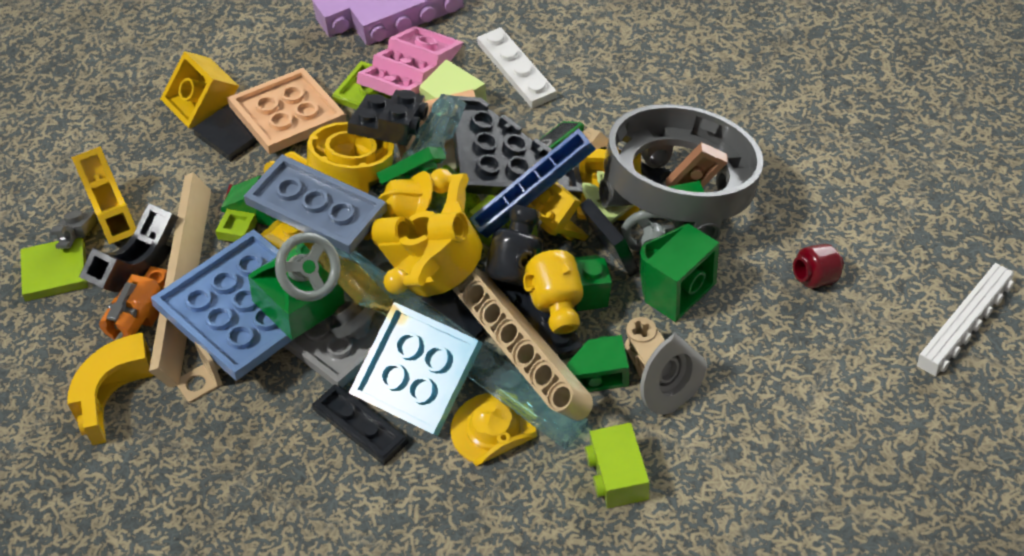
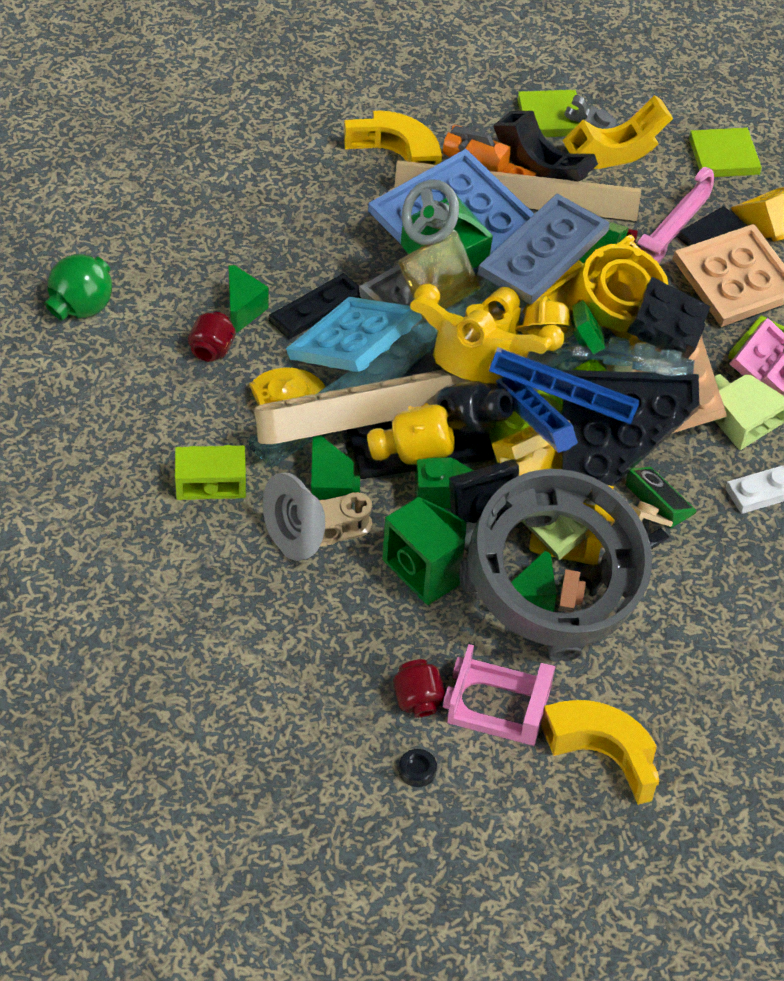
camera: 90 degrees right, 0 degrees up
(117, 133) = (725, 151): none -> lime tile
(229, 164) = (658, 241): none -> bright pink piece
(366, 484) = (246, 296): none -> green slope
(429, 501) = (211, 336): none -> dark red head
(492, 173) = (564, 385): none -> blue piece
(808, 191) = (473, 672): none -> bright pink panel
(815, 162) = (608, 730): none -> yellow arch
(890, 263) = (417, 767): none -> black tile
(966, 319) = (318, 814): white piece -> none

